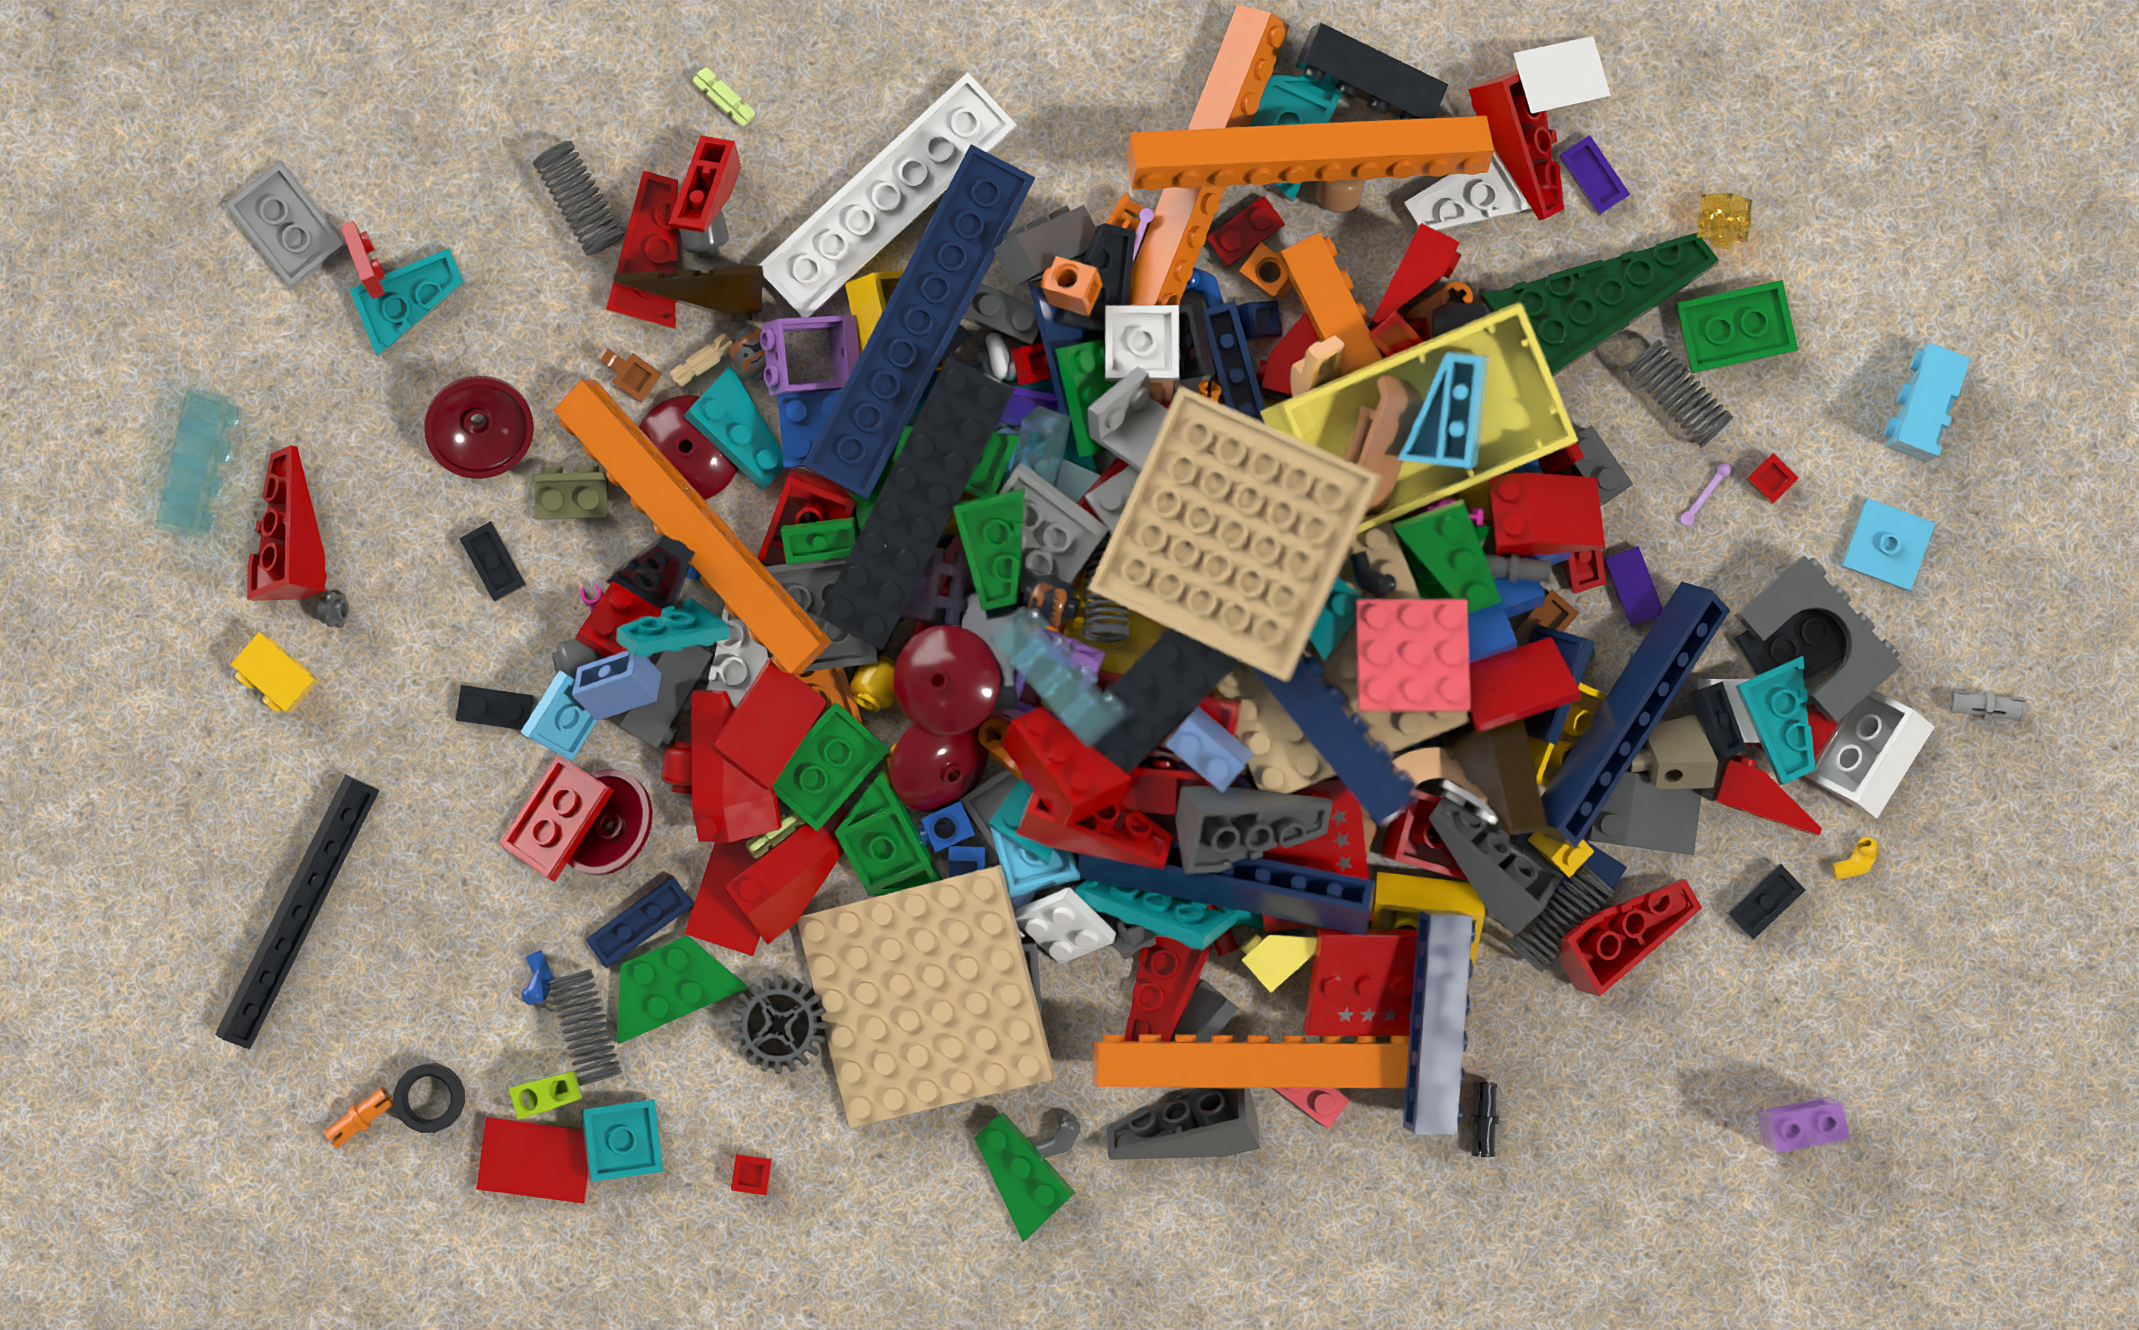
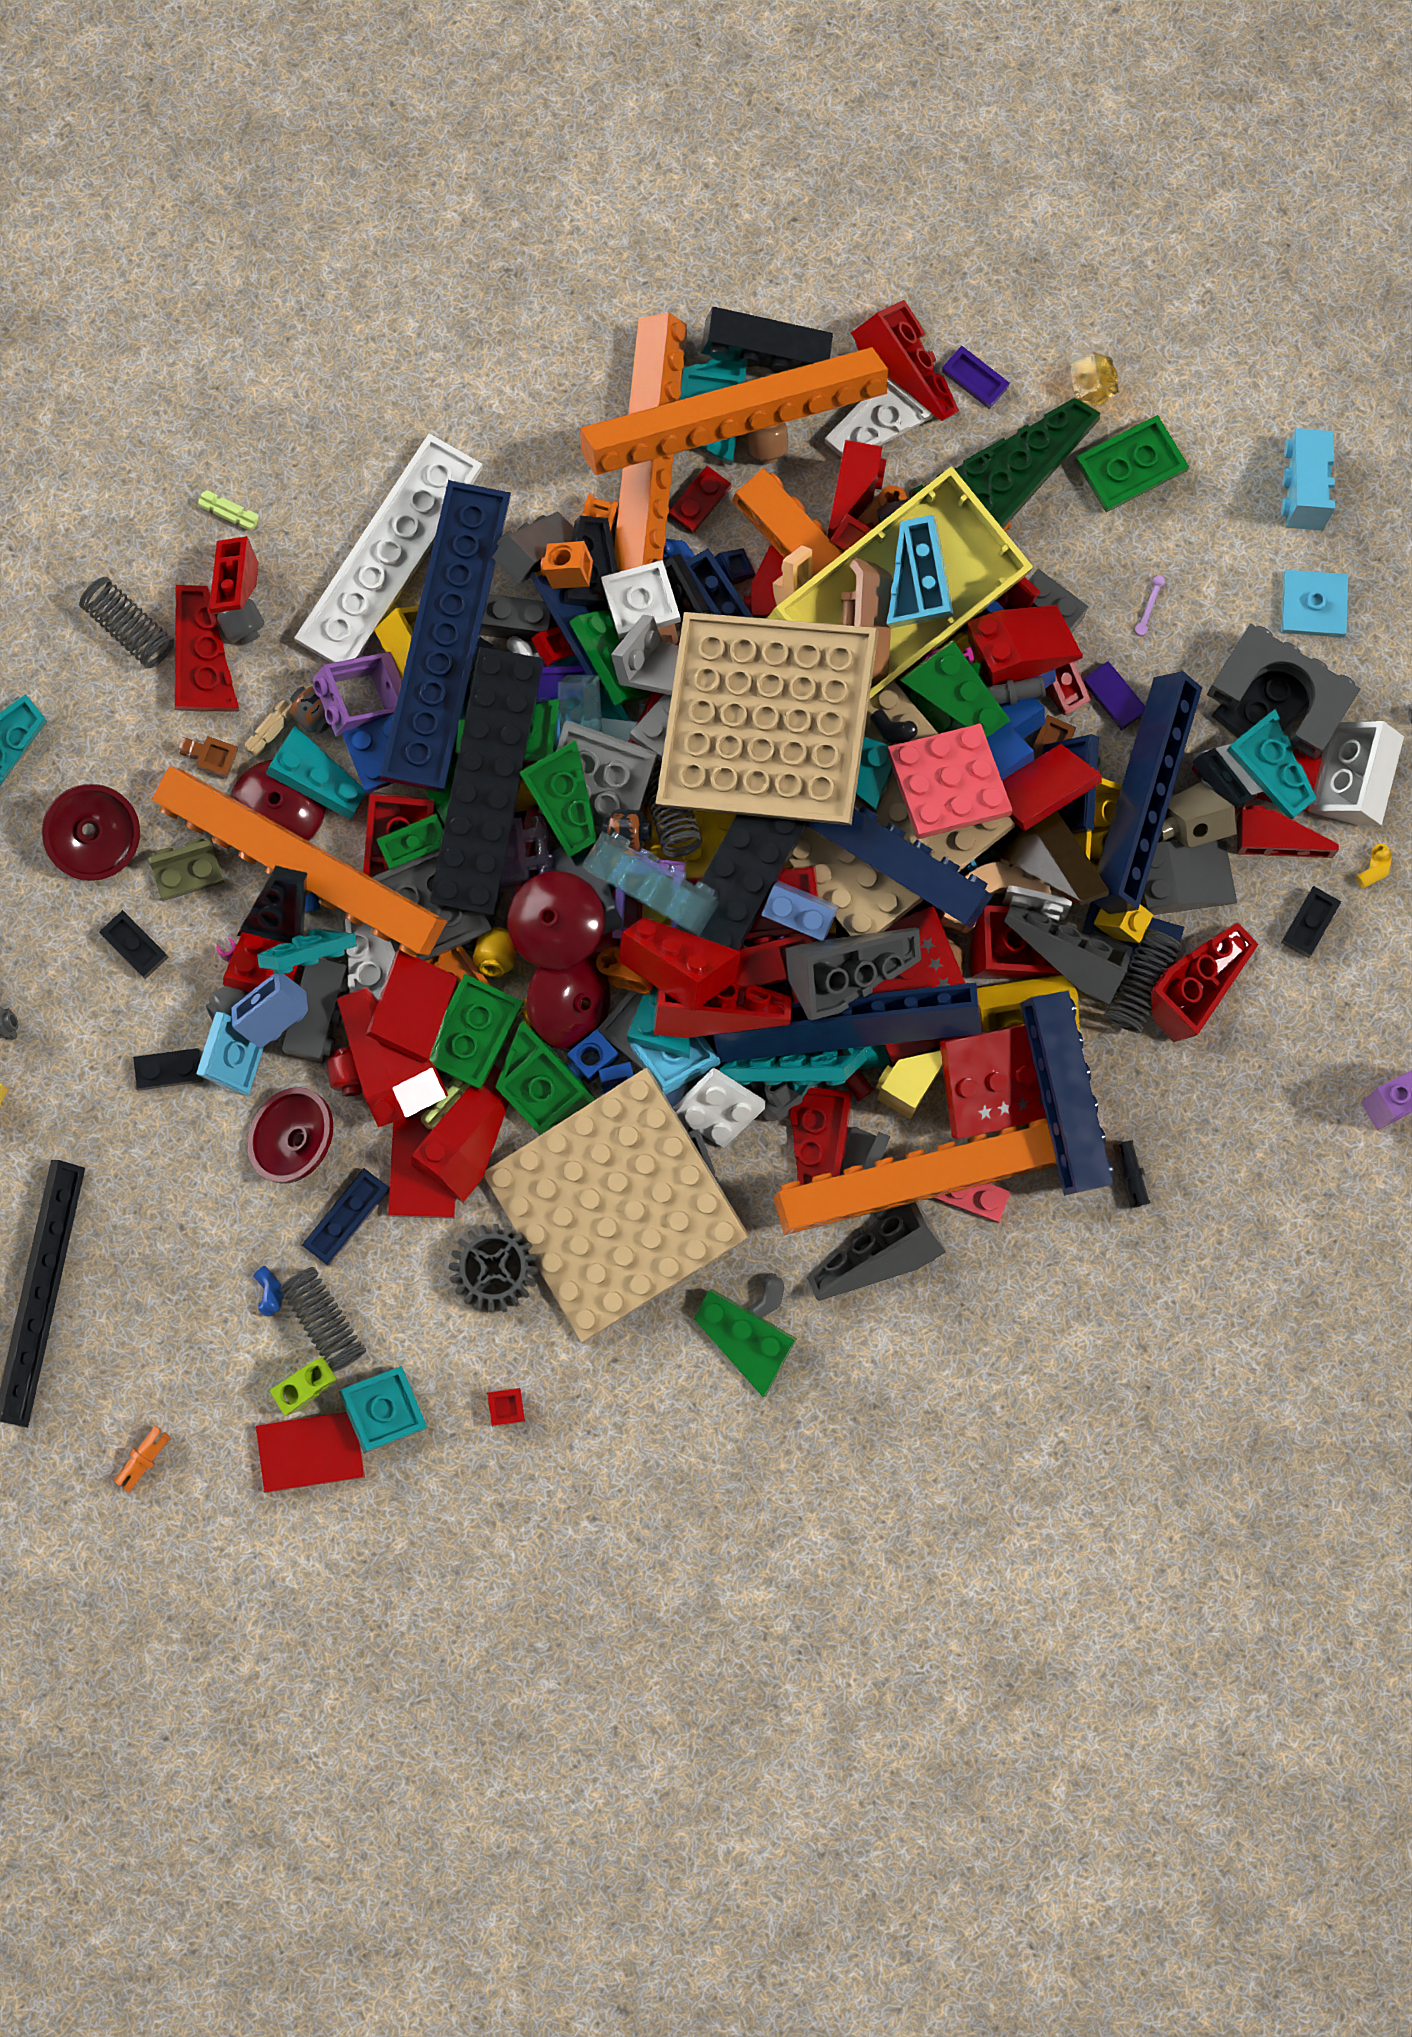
camera: 25 degrees left, 10 degrees down
(419, 1124) = (185, 1402): black tyre -> none
(556, 817) = (247, 1145): tile -> none
(669, 986) = (387, 1264): green wing -> none
(720, 291) = (270, 663): dark brown wedge -> none
(1146, 215) = (613, 503): lavender hinge -> none
(1250, 272) = (722, 513): orange brick -> none
(1562, 74) = (923, 302): white sticker -> none
(1653, 354) = (1064, 510): dark grey piece -> none
(1772, 478) = (1201, 575): red plate -> none

